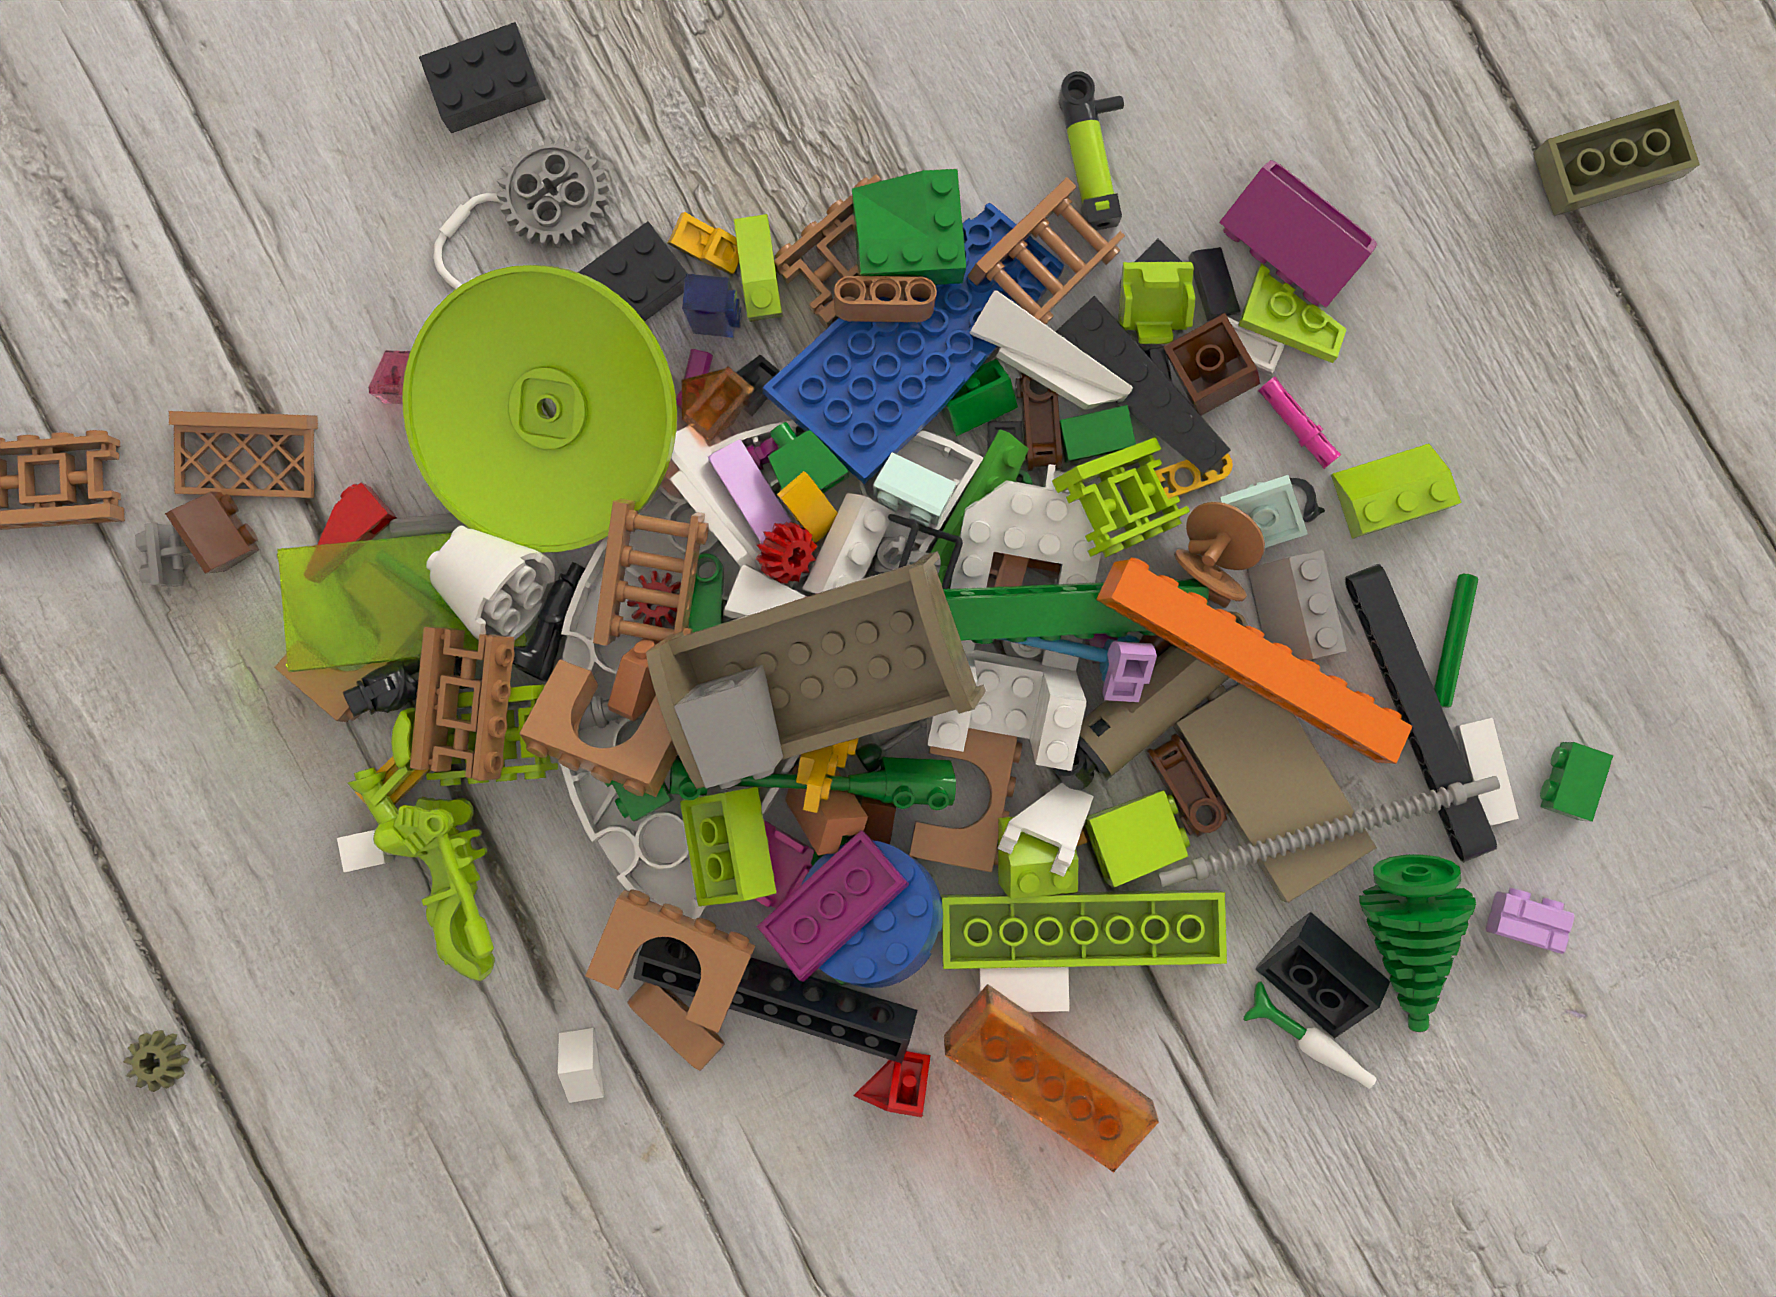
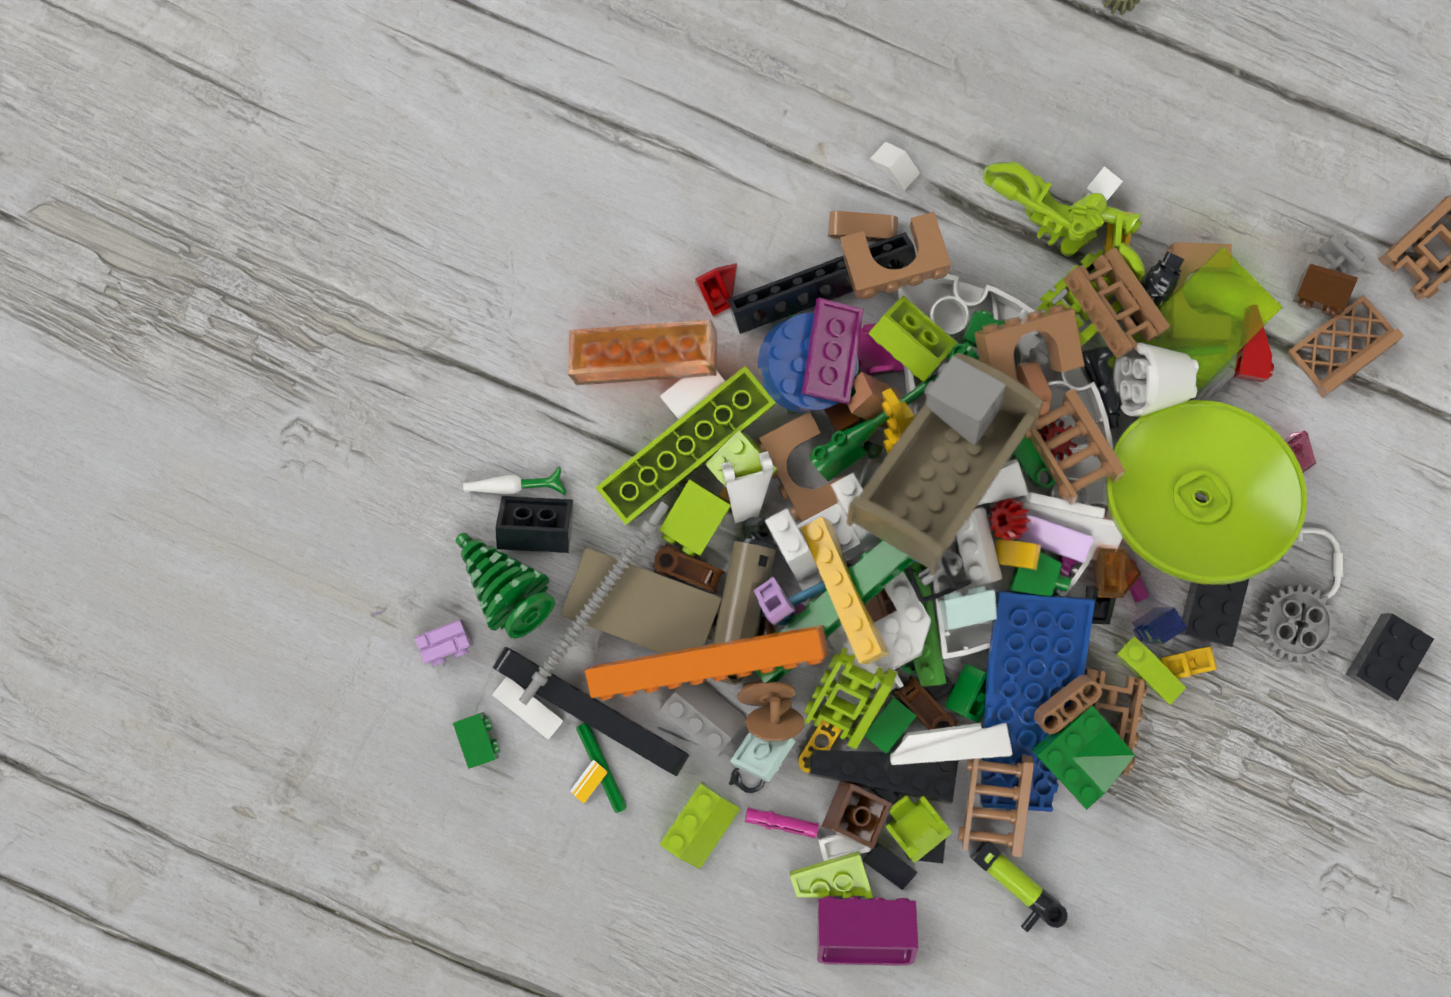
camera: 140 degrees right, 0 degrees up
(1058, 567) = (853, 615): none -> yellow arch
(1482, 635) = (588, 781): none -> yellow sticker

